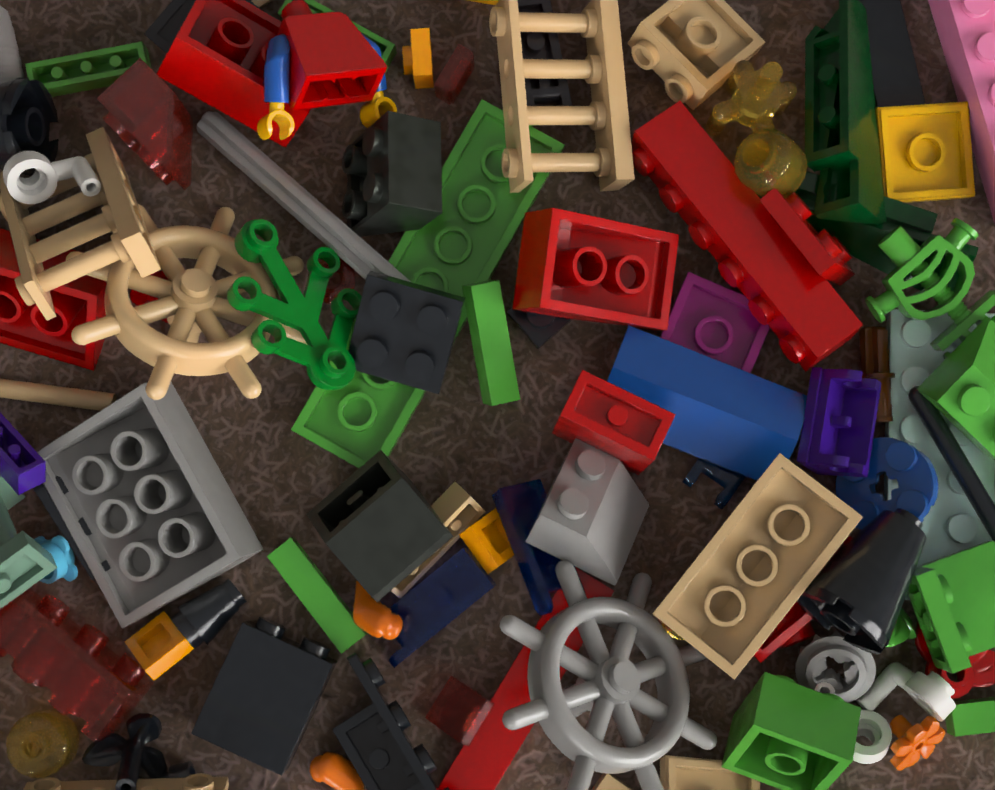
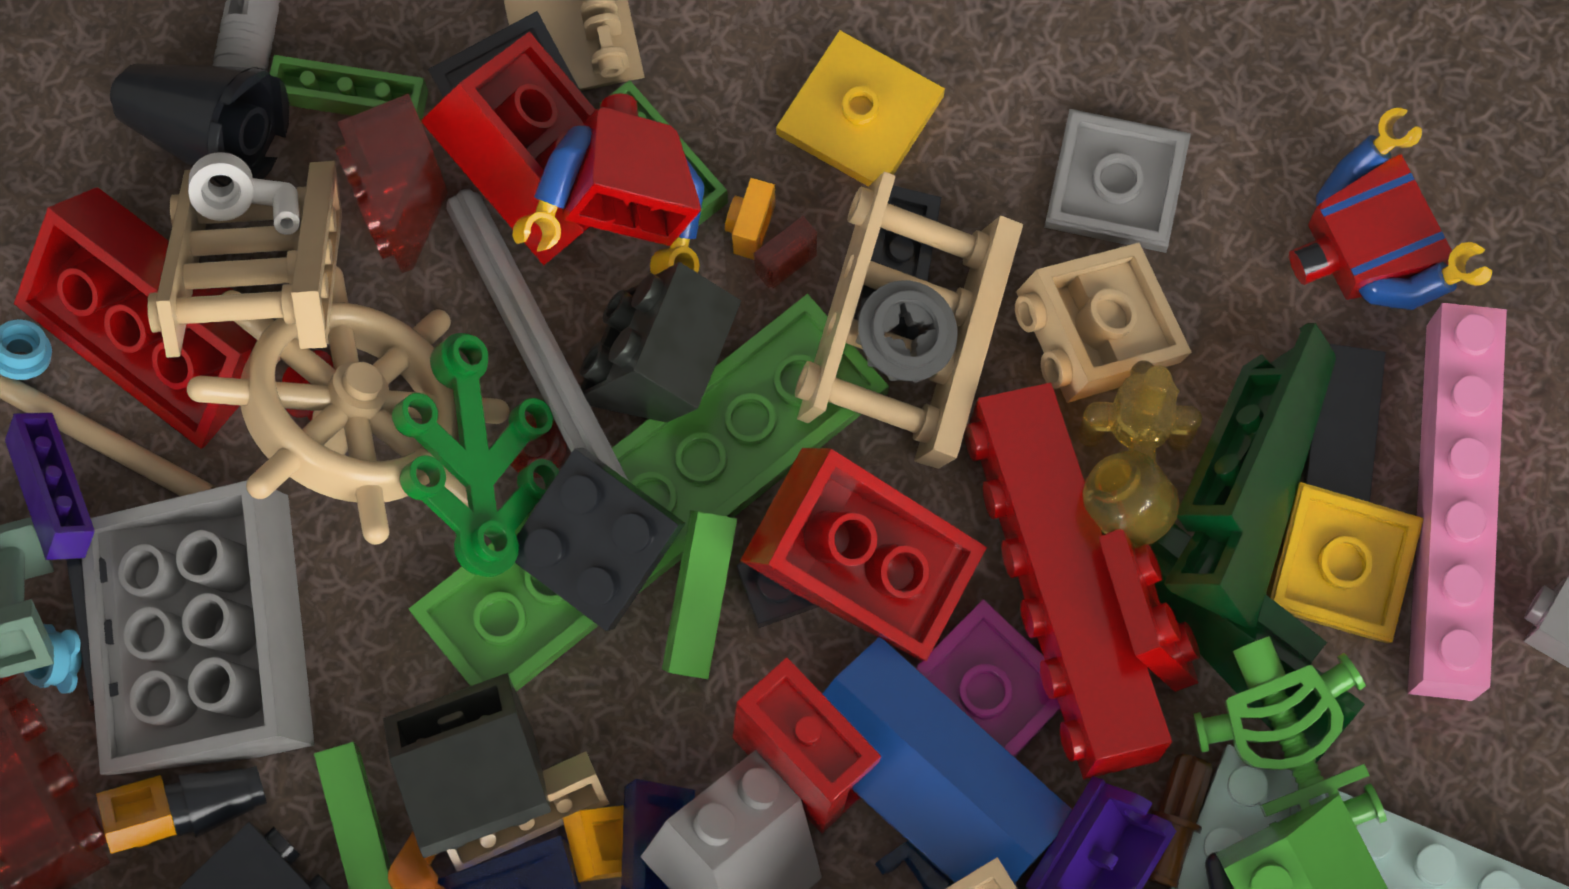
camera: 25 degrees right, 10 degrees down
(568, 80) = (920, 308): none -> dark grey gear

